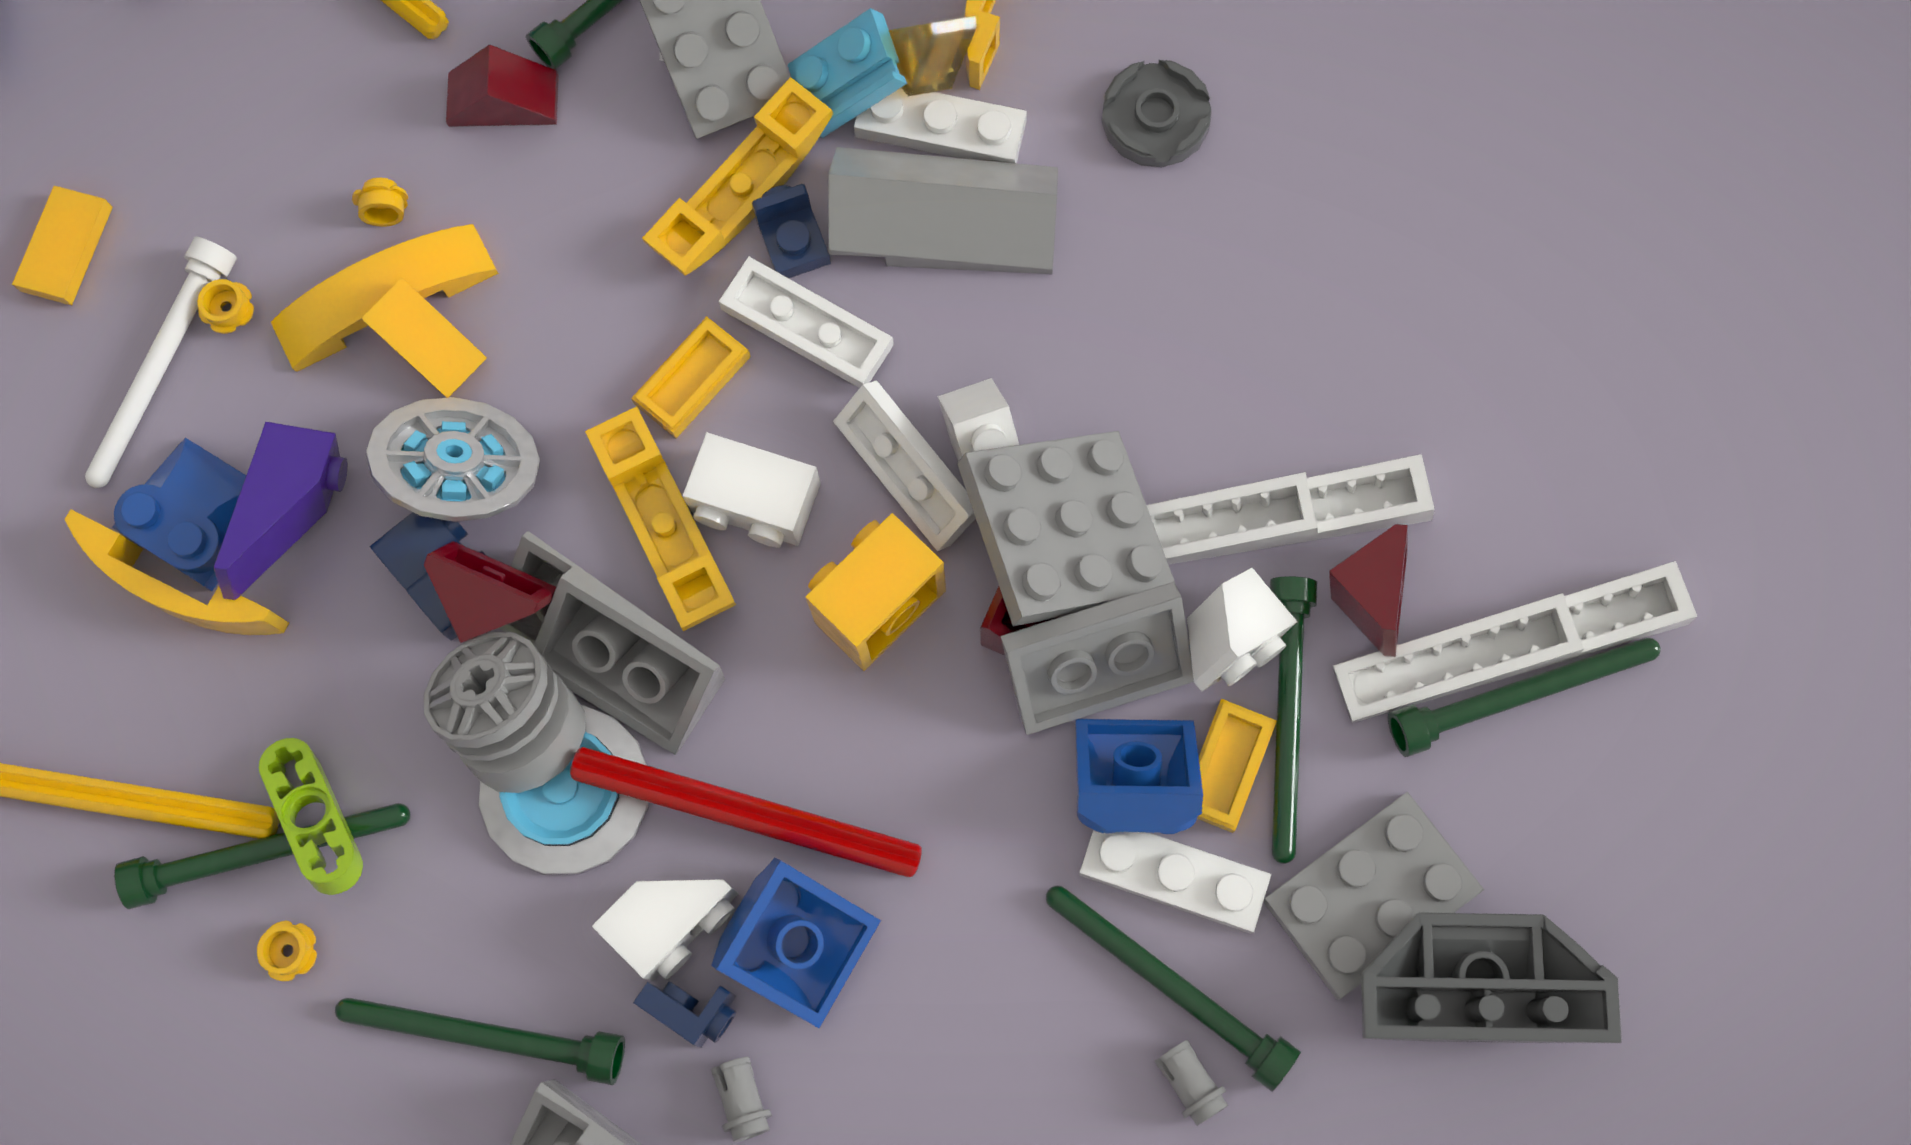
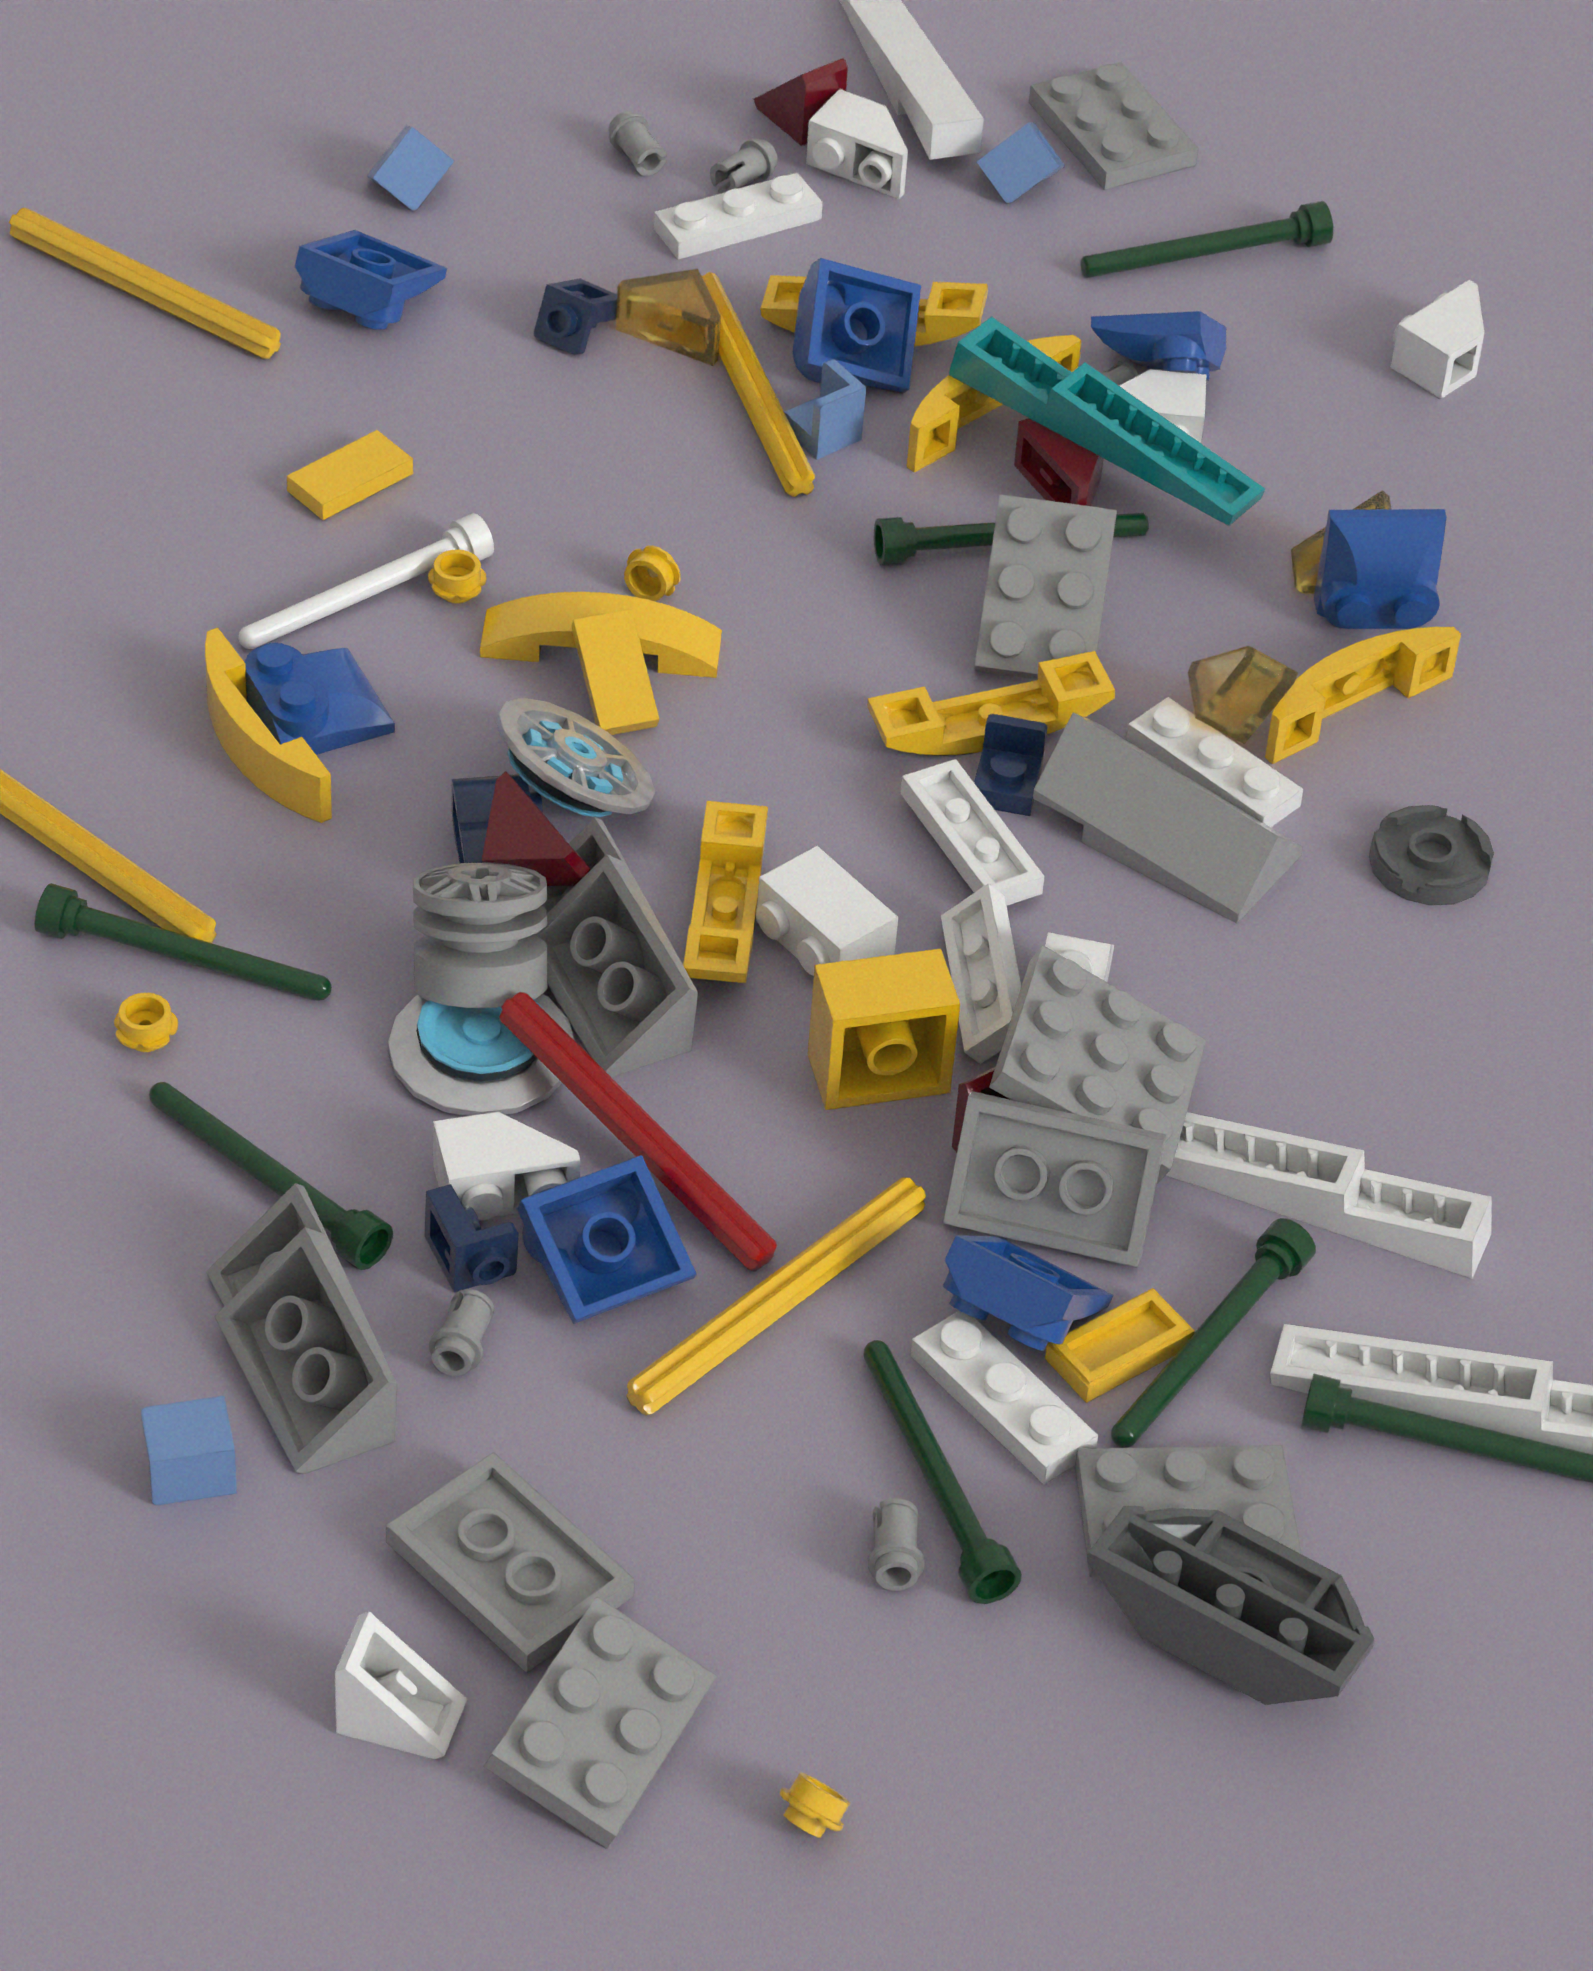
camera: 25 degrees right, 30 degrees down
(279, 501) = (396, 710): dark purple slope -> none
(330, 829) = (246, 936): lime beam -> none
(501, 91) = (824, 551): dark red slope -> none
(691, 377) = (835, 824): yellow tile -> none
(851, 68) = (1155, 674): medium azure plate -> none
(949, 895) = (775, 1296): none -> yellow axle
(1236, 630) = (1208, 1228): white slope -> none
(1371, 587) = (1374, 1272): dark red slope -> none

